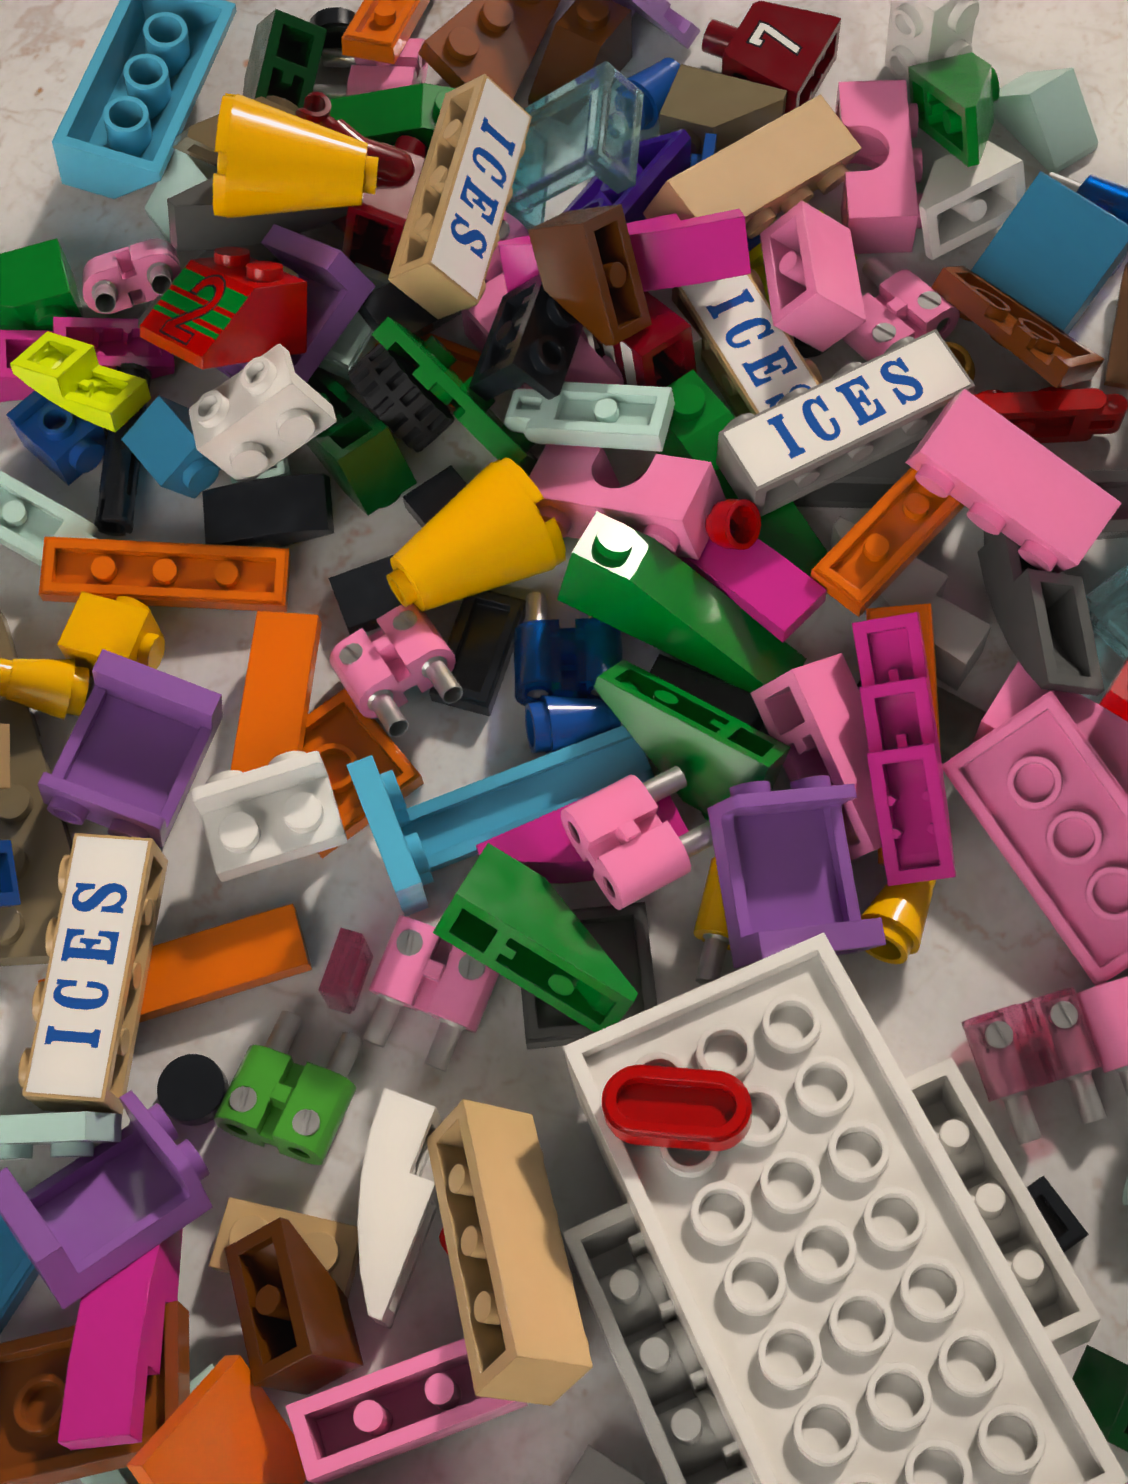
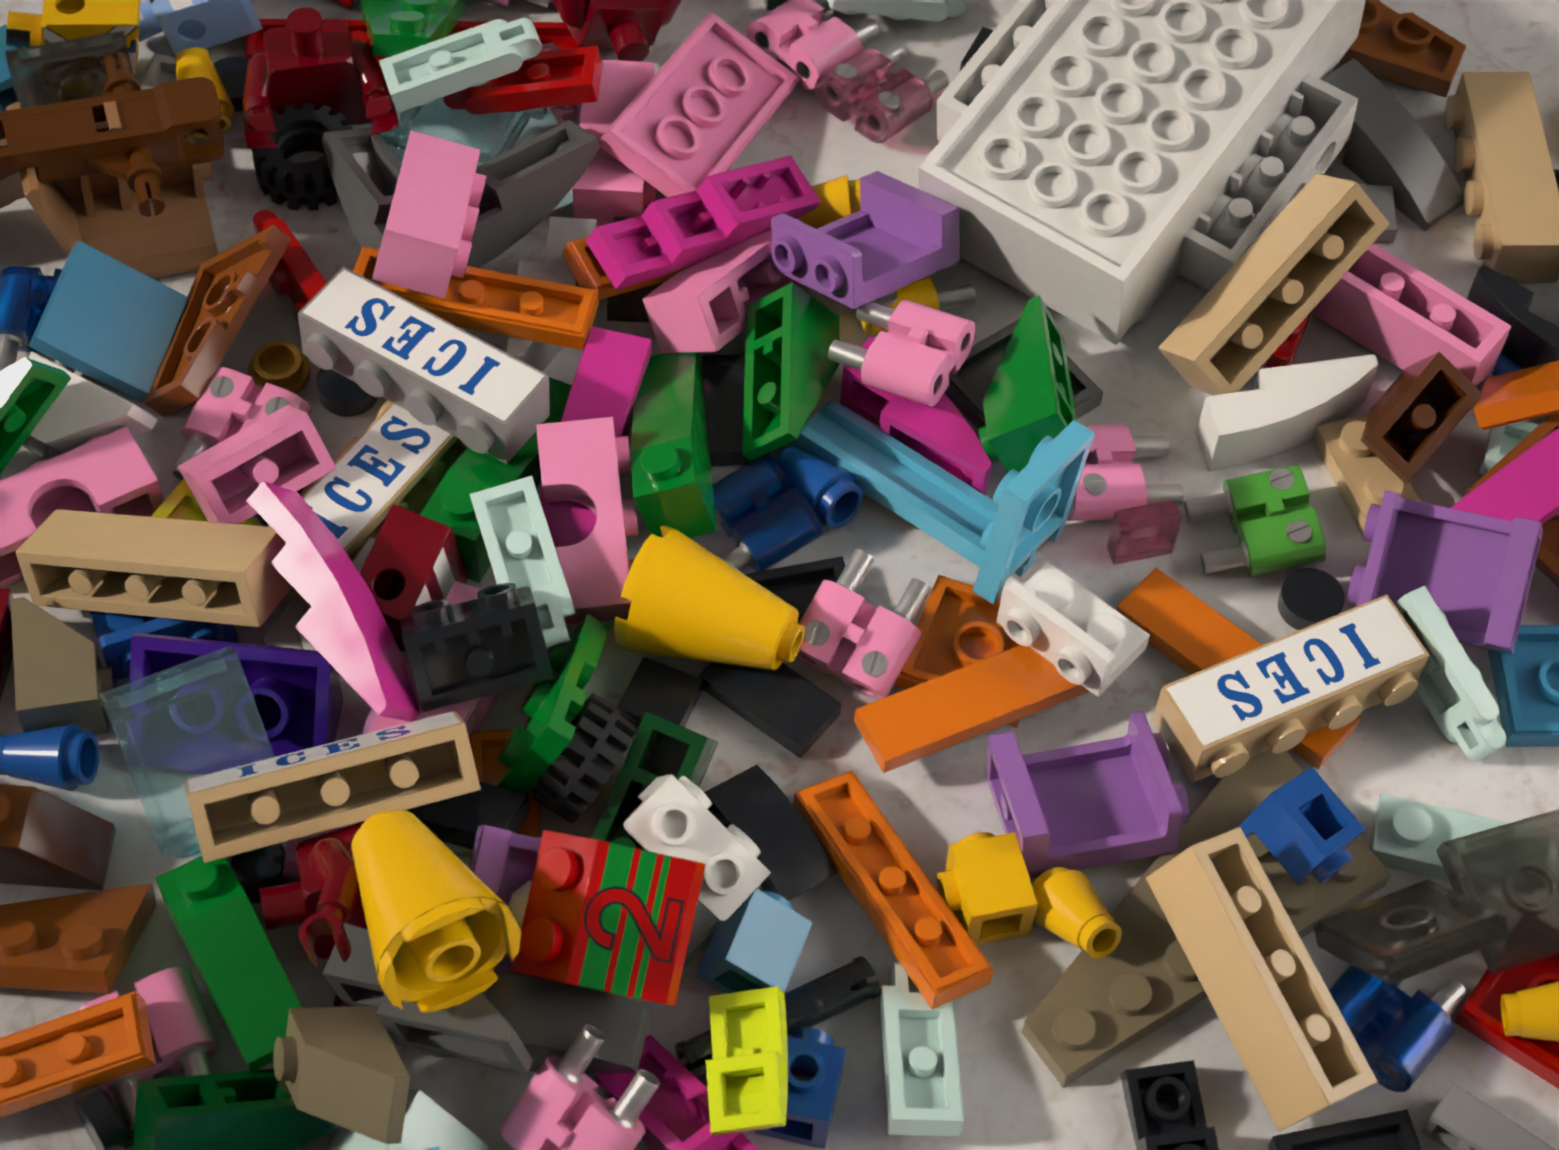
camera: 130 degrees left, 10 degrees down
(592, 271) = (393, 580): reddish brown slope -> none
(677, 1107) = (1121, 179): red tile -> none
(737, 515) = (574, 405): red hinge -> none

